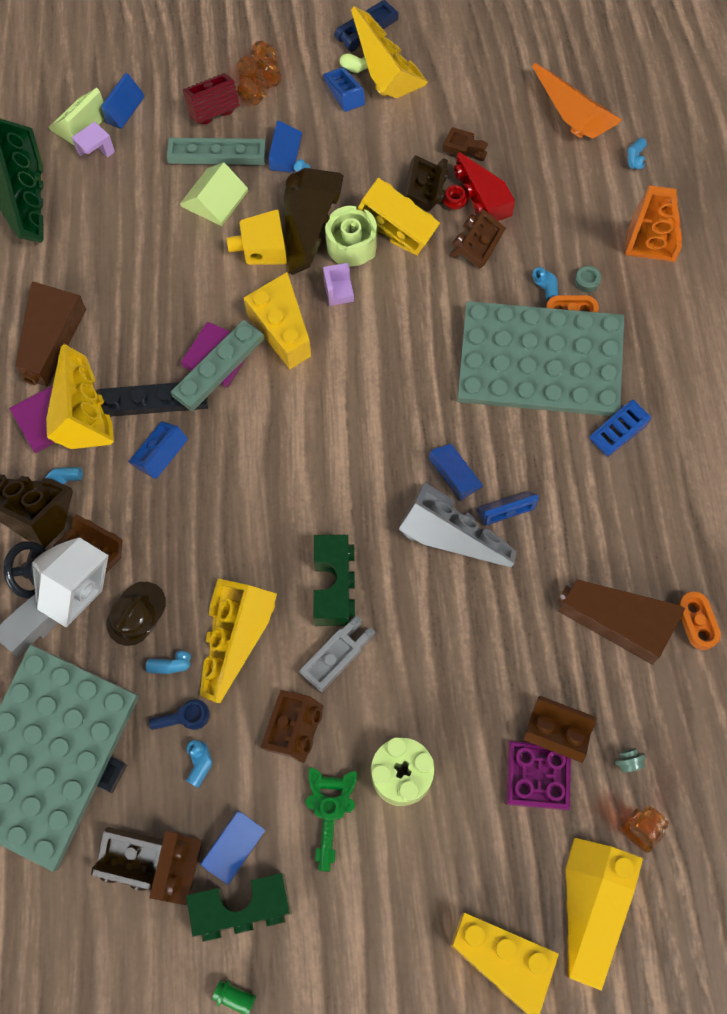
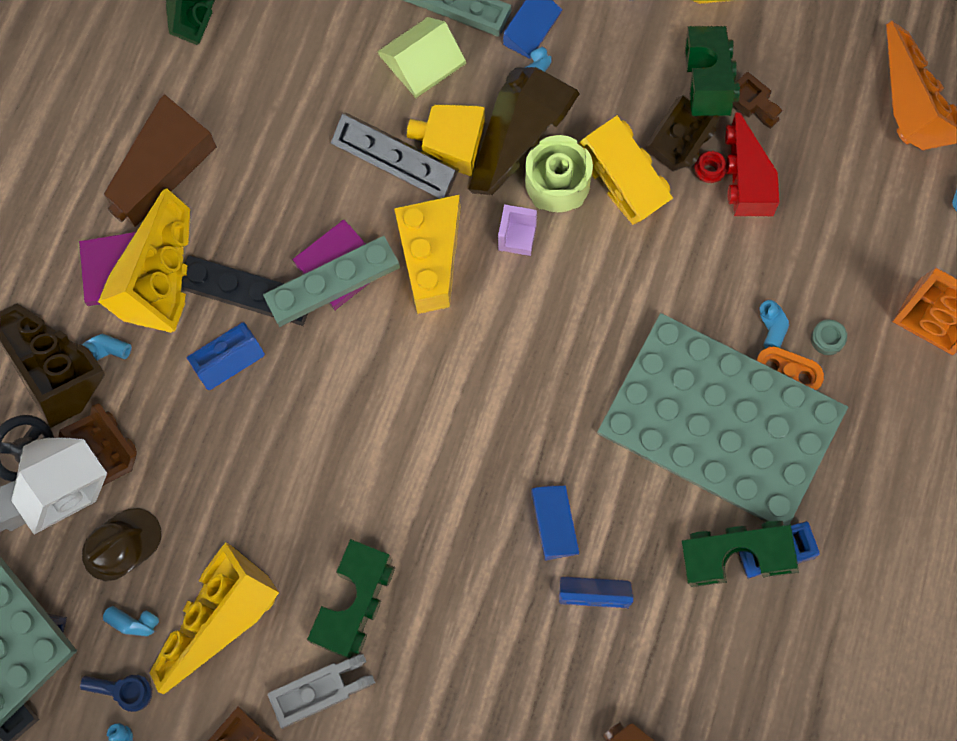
camera: 25 degrees right, 5 degrees up
(224, 266) = (394, 156): none -> plate
(431, 133) = (713, 72): none -> dark green arch
(439, 525) = (508, 587): light grey wedge -> none
(478, 238) = (714, 233): reddish brown bracket -> none
(615, 423) = (707, 554): none -> dark green arch

